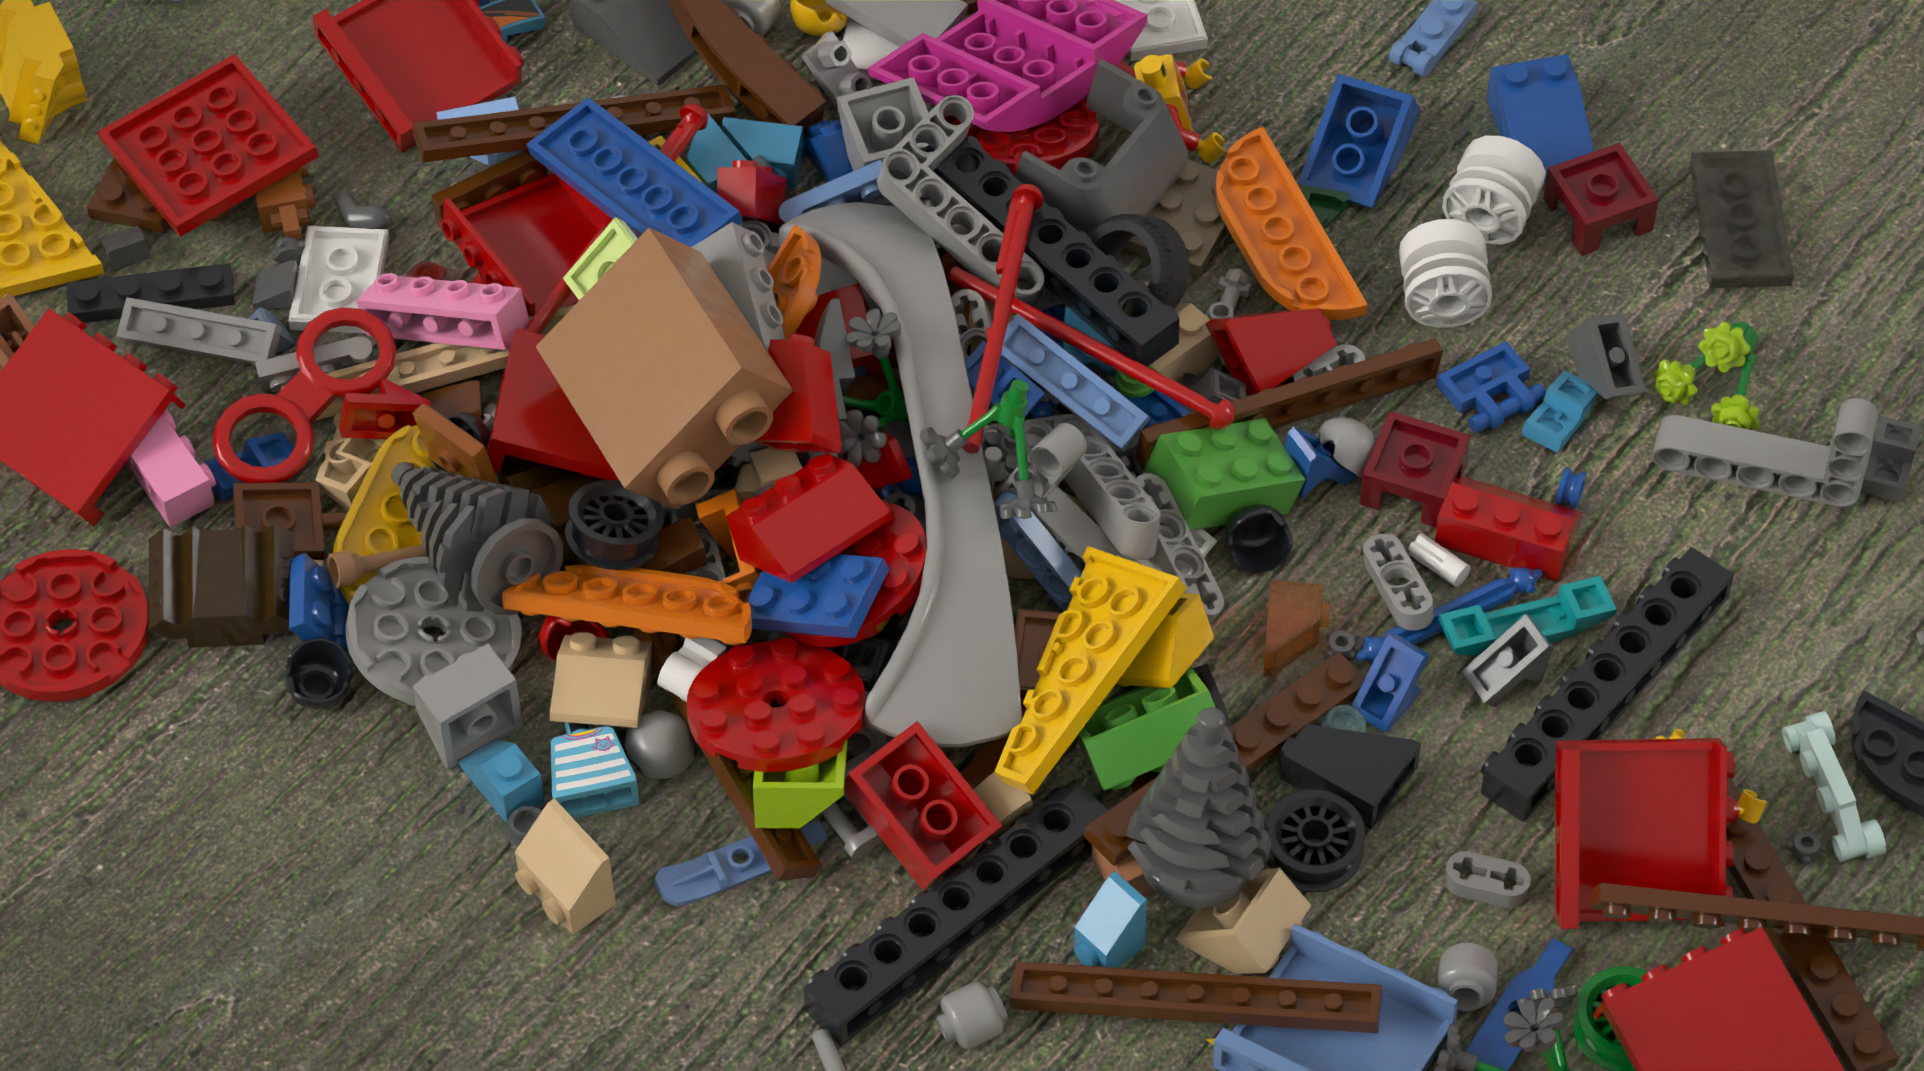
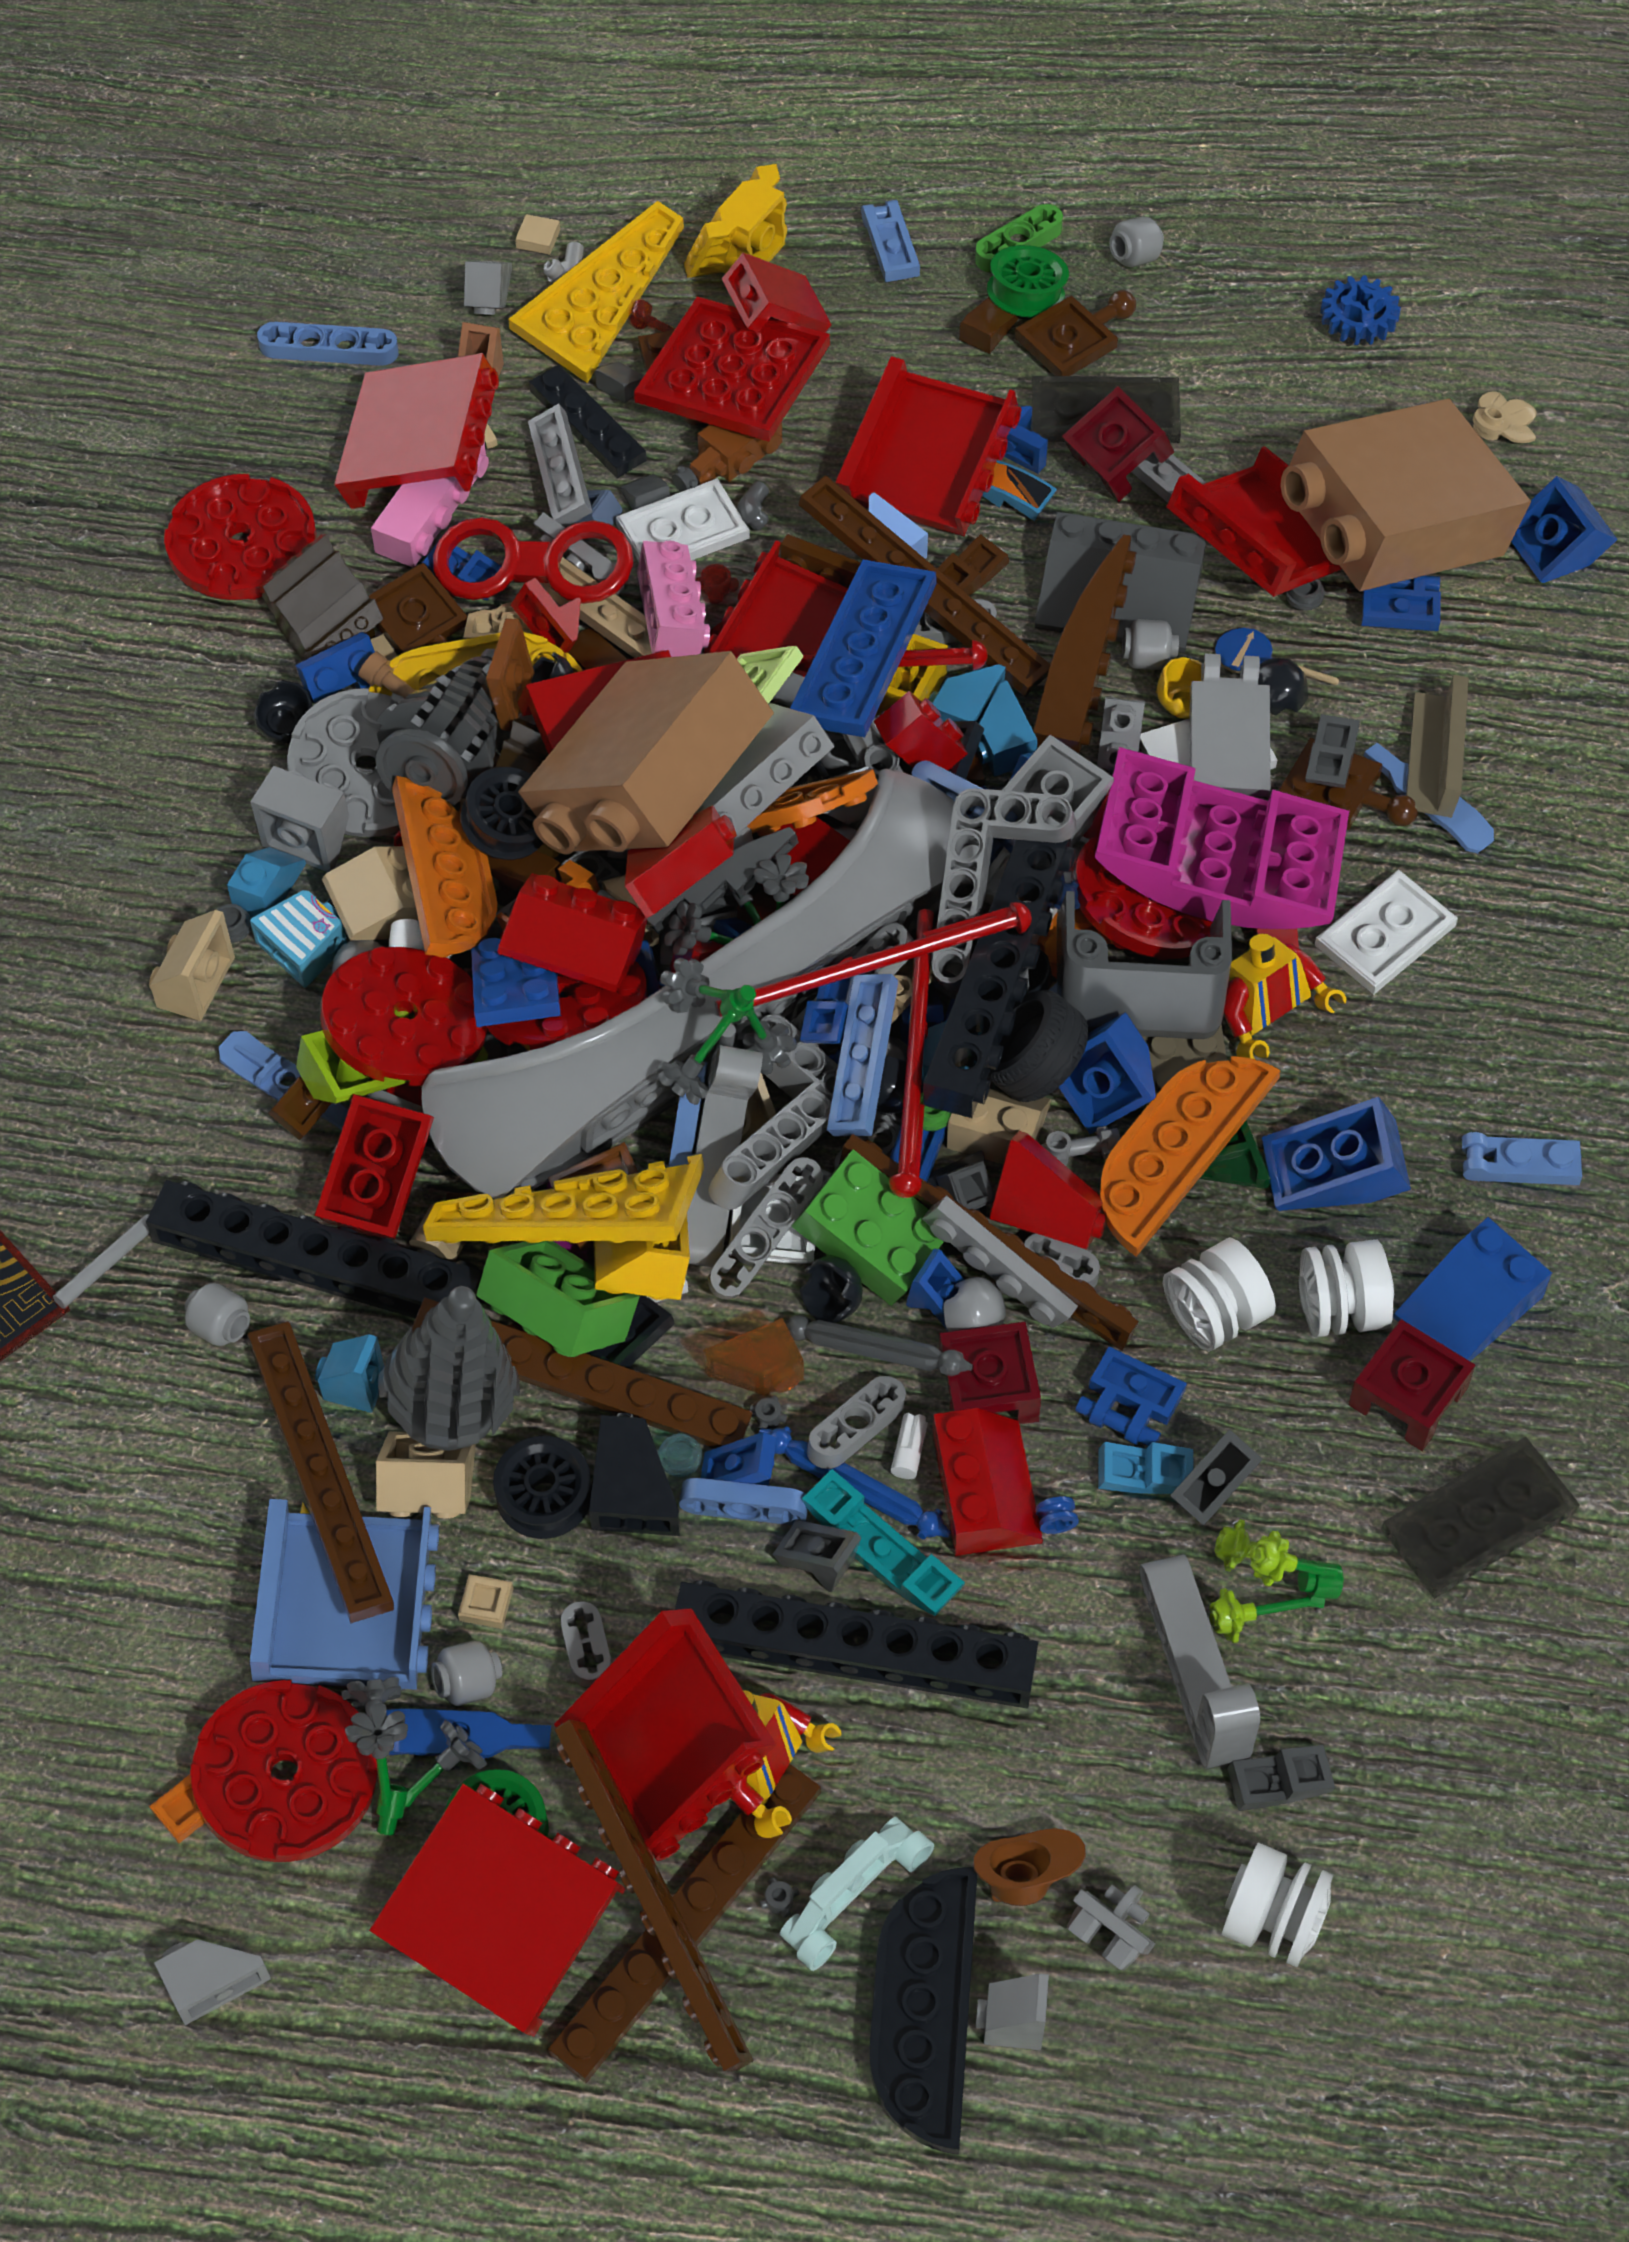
camera: 60 degrees right, 5 degrees up
(64, 197) = (642, 317): none -> clear red hand
(151, 76) = (773, 291): none -> red panel
(559, 83) = (974, 565): none -> reddish brown slope
(1202, 229) = (1111, 1075): none -> blue slope
(1321, 400) = (992, 1256): none -> light grey plate
(1340, 526) = (877, 1345): none -> dark grey wheel
(1397, 937) = (485, 1601): none -> tan tile
(1424, 695) = (742, 1501): none -> medium blue beam
(1884, 649) = (1027, 1865): none -> dark orange piece

